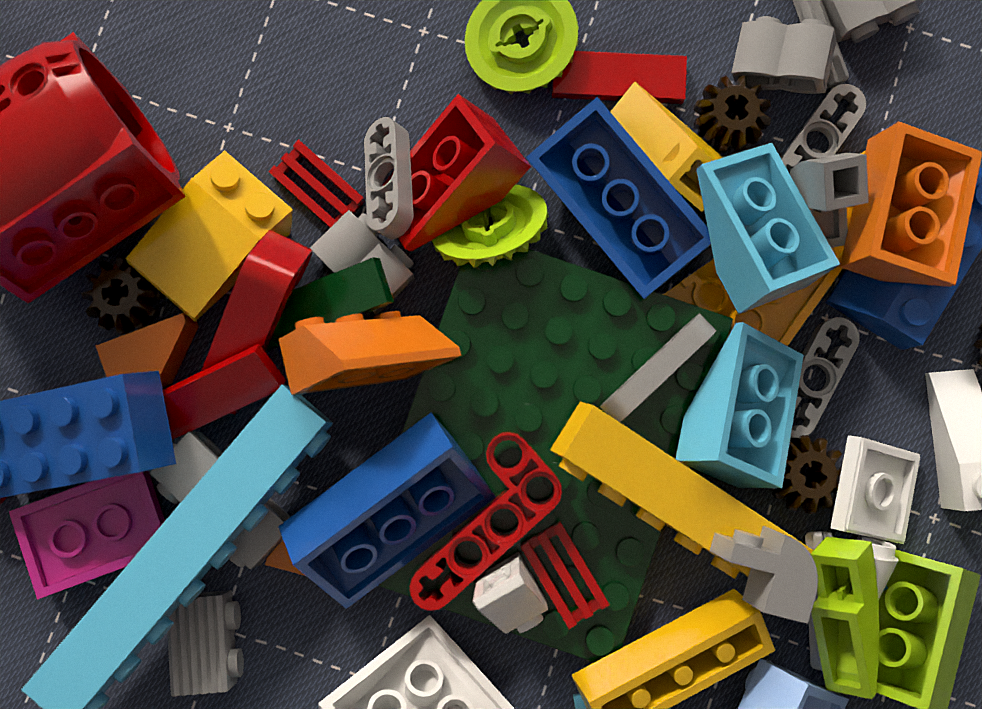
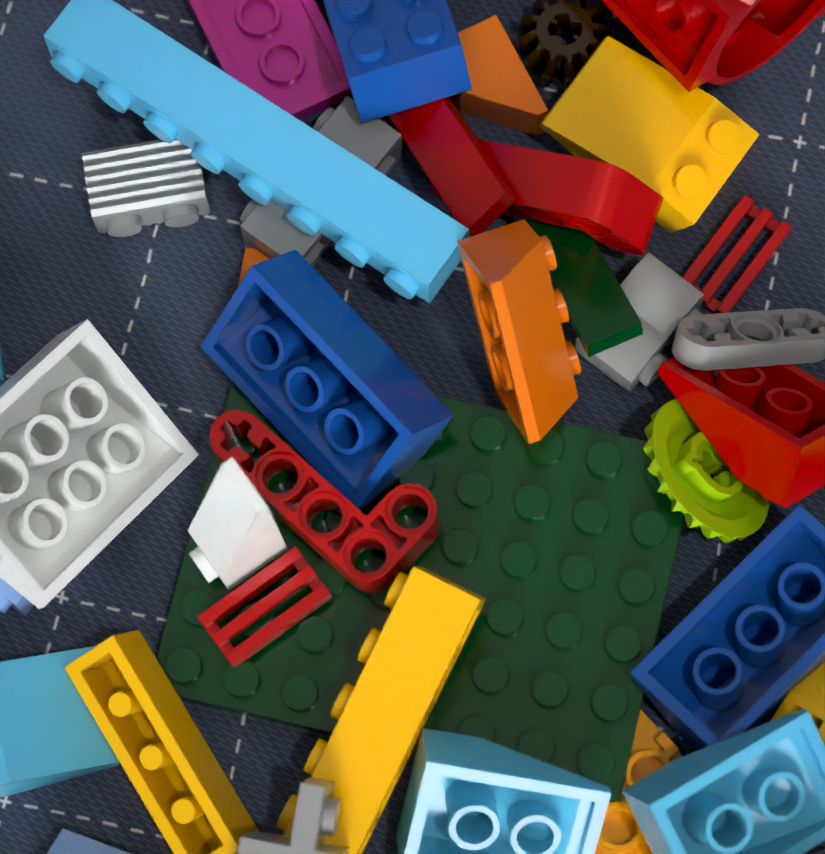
camera: 85 degrees right, 10 degrees down
(658, 368) = (540, 695): light grey beam -> none

